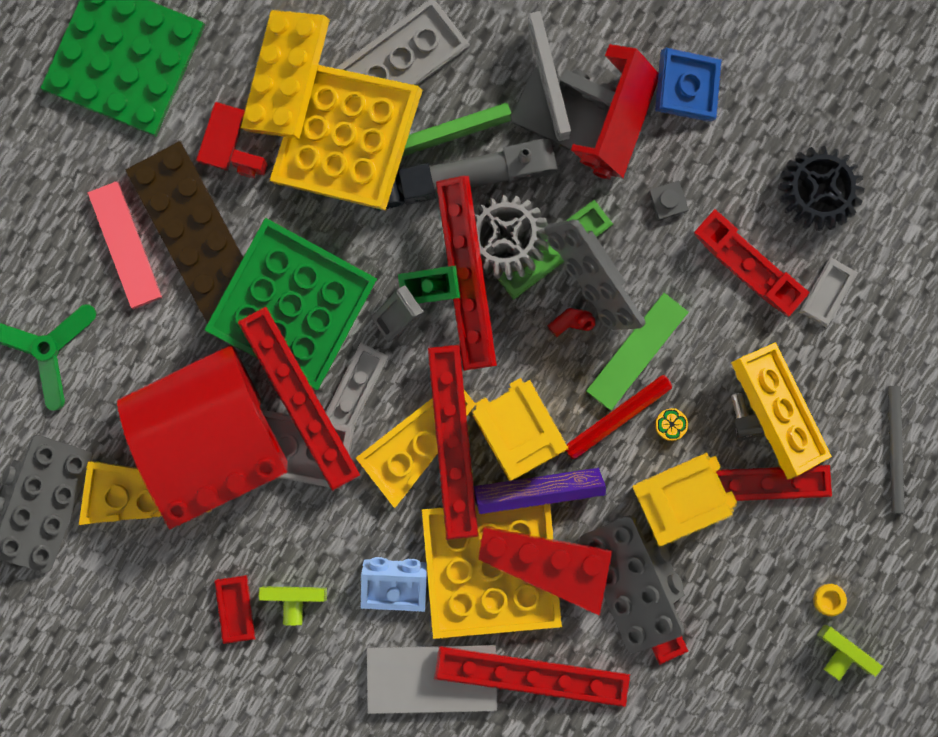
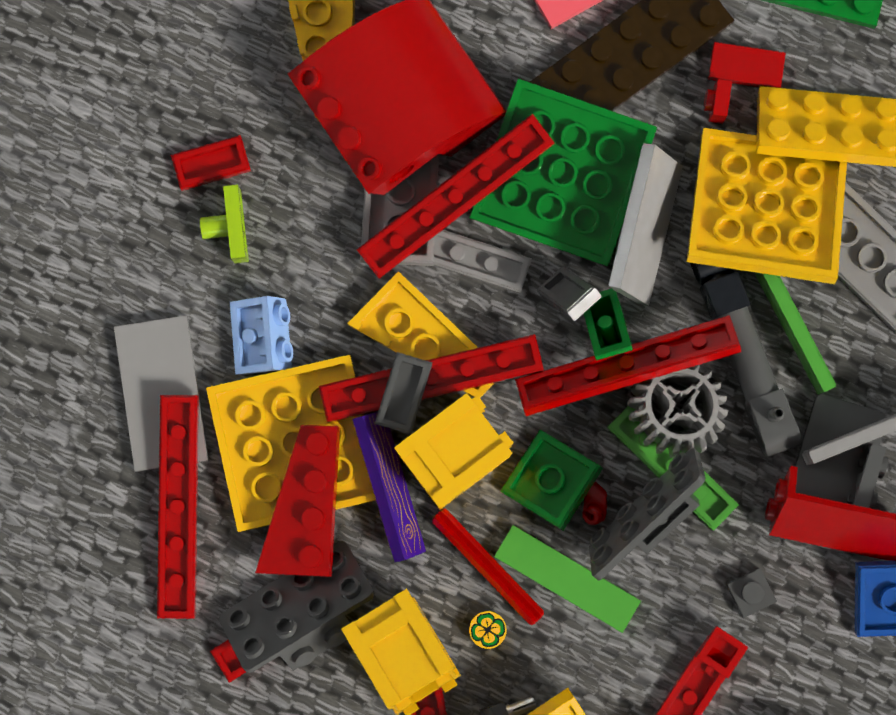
camera: 80 degrees right, 0 degrees up
(347, 240) = (645, 224): none -> light grey tile
(463, 466) = (403, 393): none -> dark grey tile
(552, 352) = (551, 480): none -> green tile

